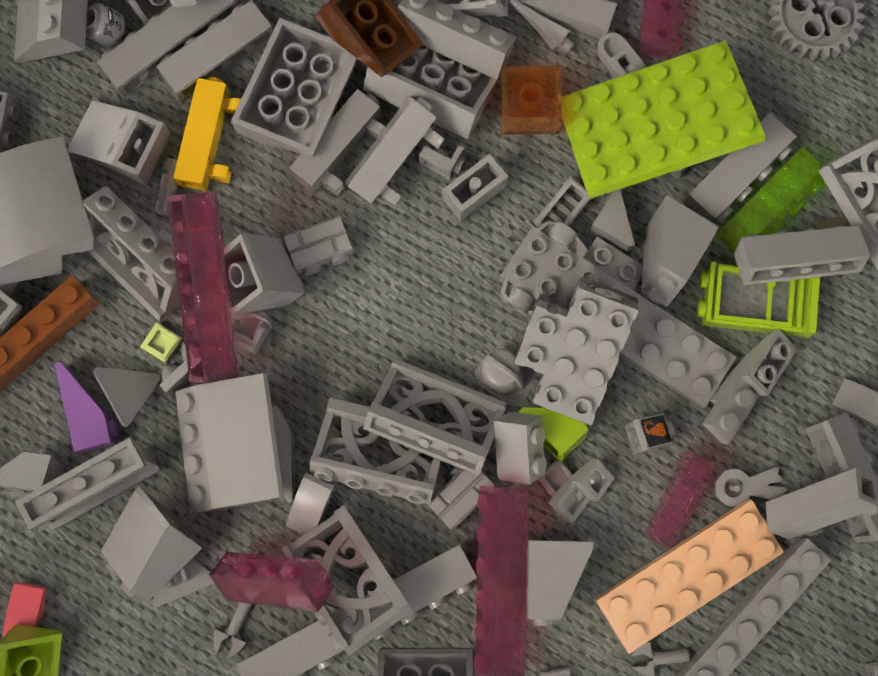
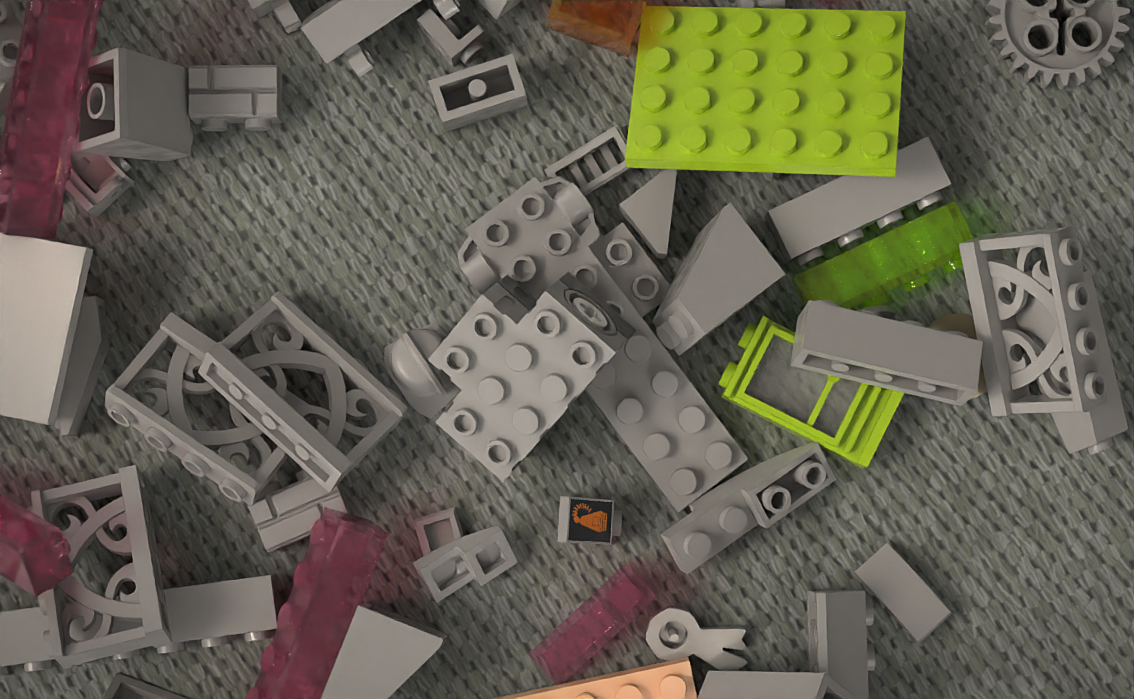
camera: 20 degrees right, 5 degrees up
(309, 504) = (90, 446): light grey slope -> none
(520, 448) = (400, 475): light grey brick -> none
(561, 432) = (459, 473): lime slope -> none

